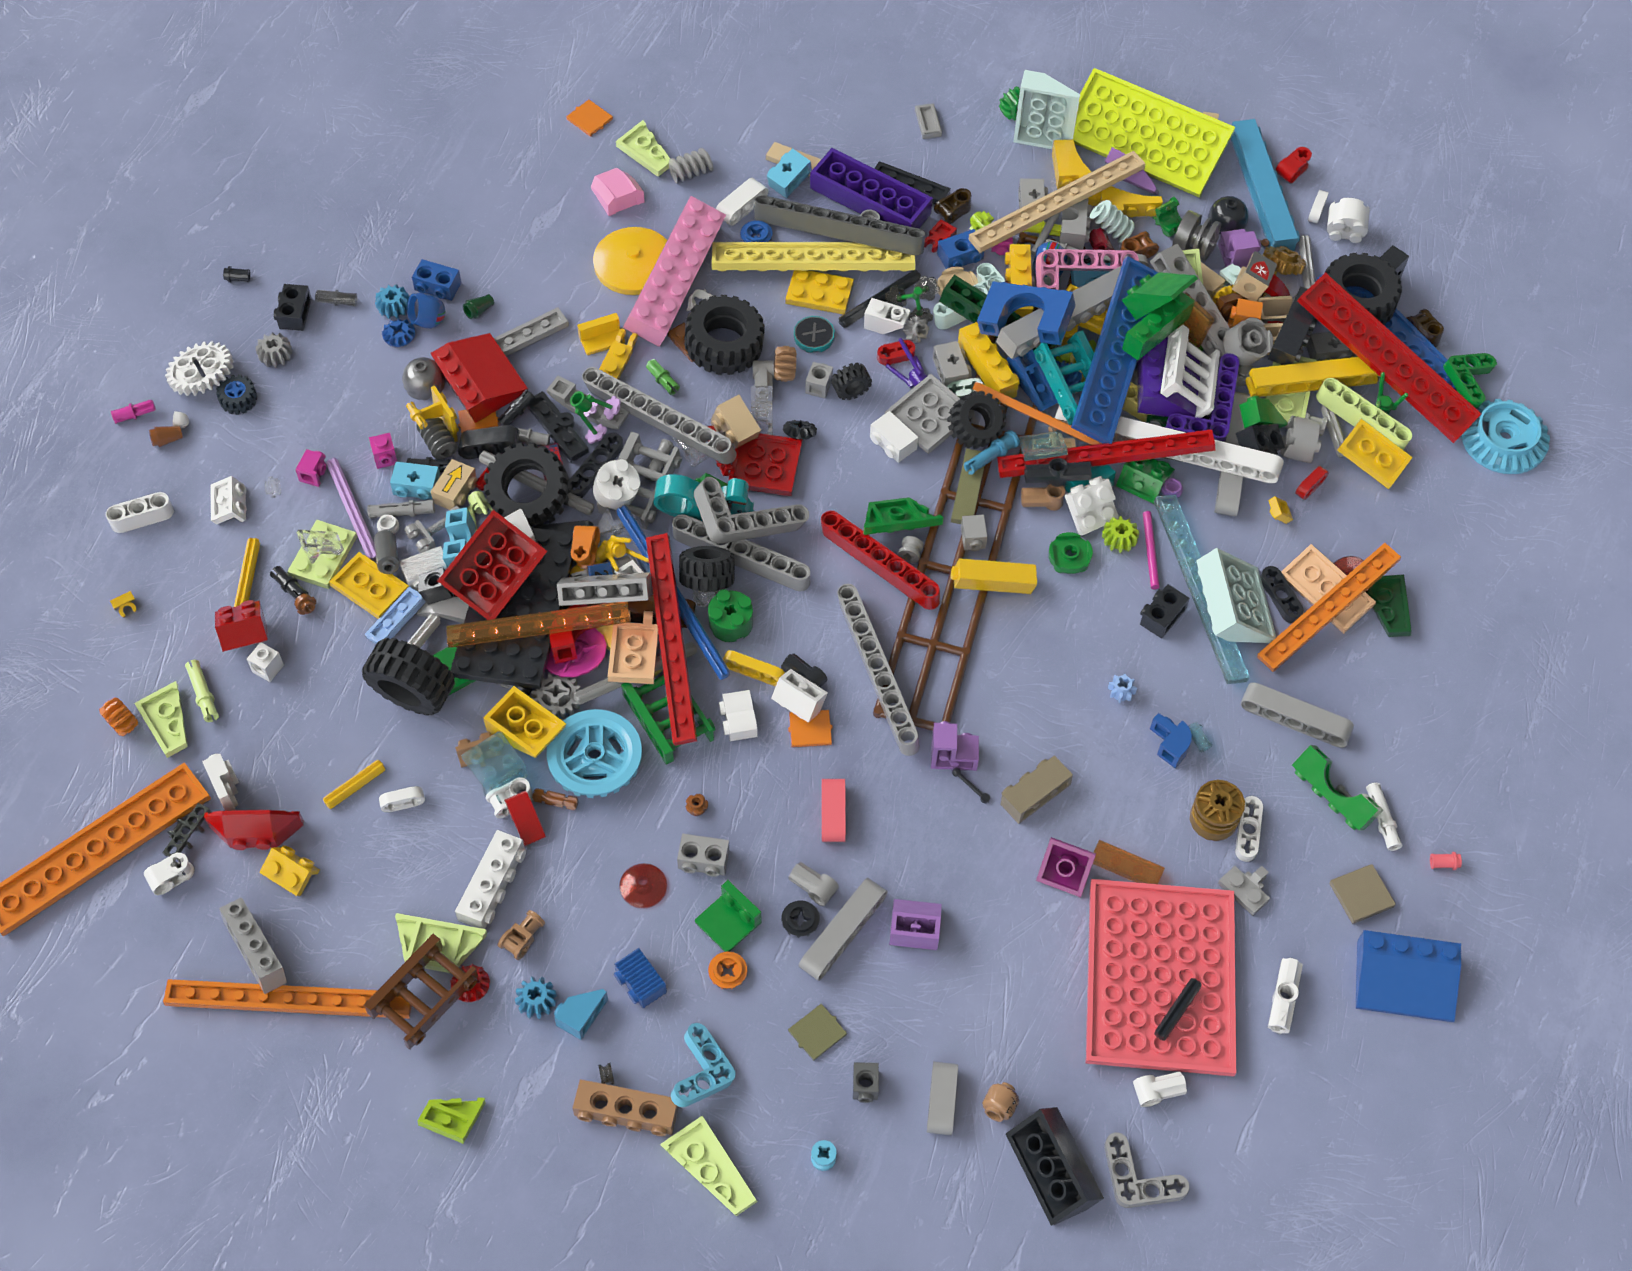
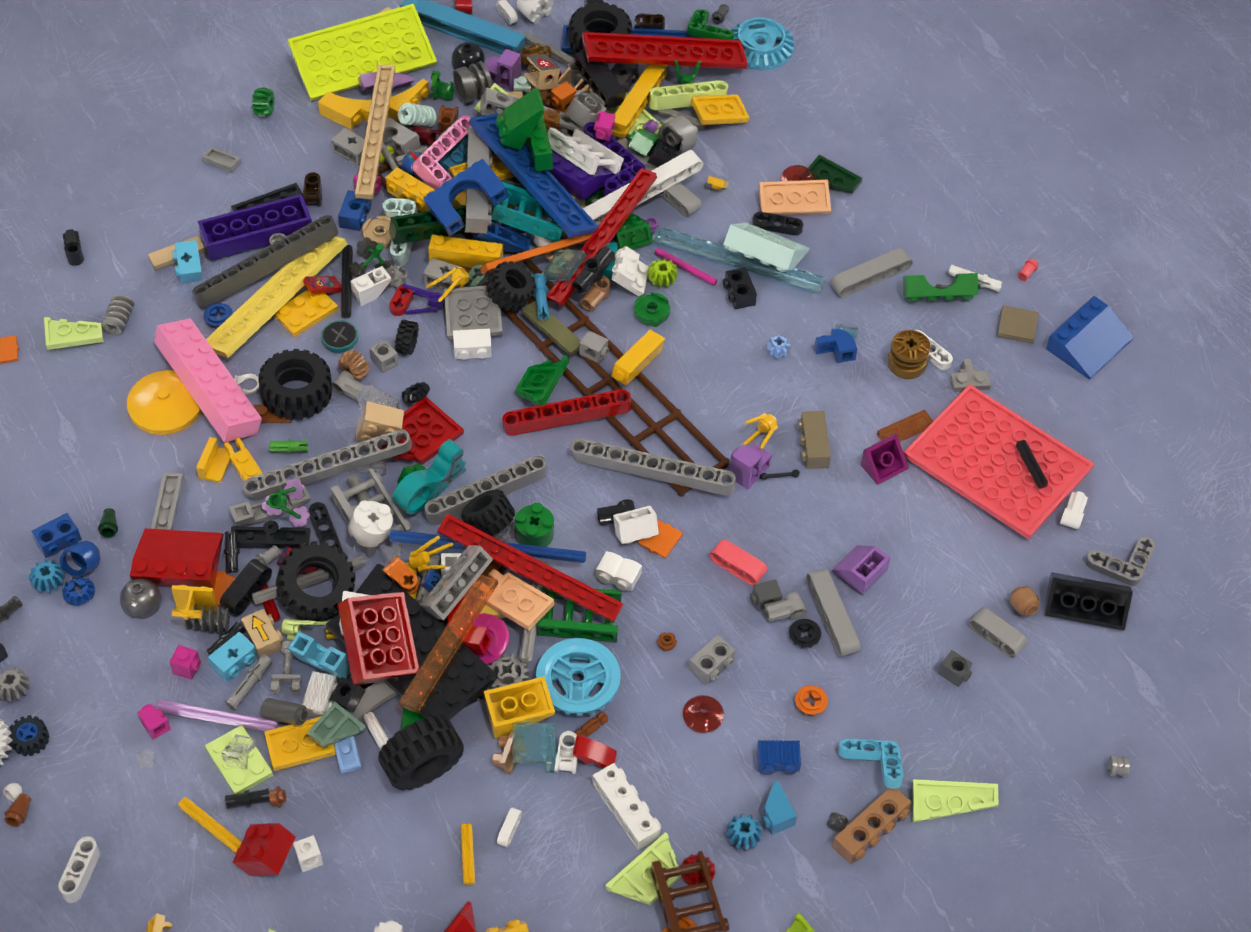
camera: 55 degrees left, 5 degrees down
(204, 698) = (293, 916): yellowish green pin -> none
(228, 500) = (127, 799): white bracket -> none
(389, 523) = (254, 699): white plate -> none
(397, 597) = (335, 726): none -> sand green wing
(520, 937) = (687, 813): medium nougat connector -> none
(617, 191) = (90, 373): bright pink slope -> none
(726, 528) = (459, 476): light grey beam -> none
(729, 918) = (773, 672): green bracket -> none
(730, 89) = (73, 247): none -> black piece
(741, 201) = (181, 301): white beam -> none
(752, 667) = (590, 538): yellow beam -> none
(814, 855) = (765, 593): none -> dark grey brick
(817, 1032) = (895, 676): olive piece -> none
(821, 1160) = (986, 729): medium azure wheel -> none
(854, 282) = (322, 284): none -> red tile
(910, 549) = (571, 390): light grey wheel -> none
(939, 232) = (328, 208): red plate -> none
(950, 373) = (459, 277): none -> yellow plant
(980, 220) = (343, 184): lime gear -> none
(1014, 735) = (767, 424): none -> yellow plant
(1045, 111) = (297, 86): light aqua slope -> none
(1237, 368) = (604, 125): none -> dark pink brick
(1283, 1008) = (1059, 406): white piece -> none
(1287, 409) = (651, 126): none -> medium lavender plate
(1312, 482) = (711, 153): red beam -> none
(1328, 607) = (813, 204): orange plate -> none
(1505, 377) = (719, 15): none -> dark grey pin

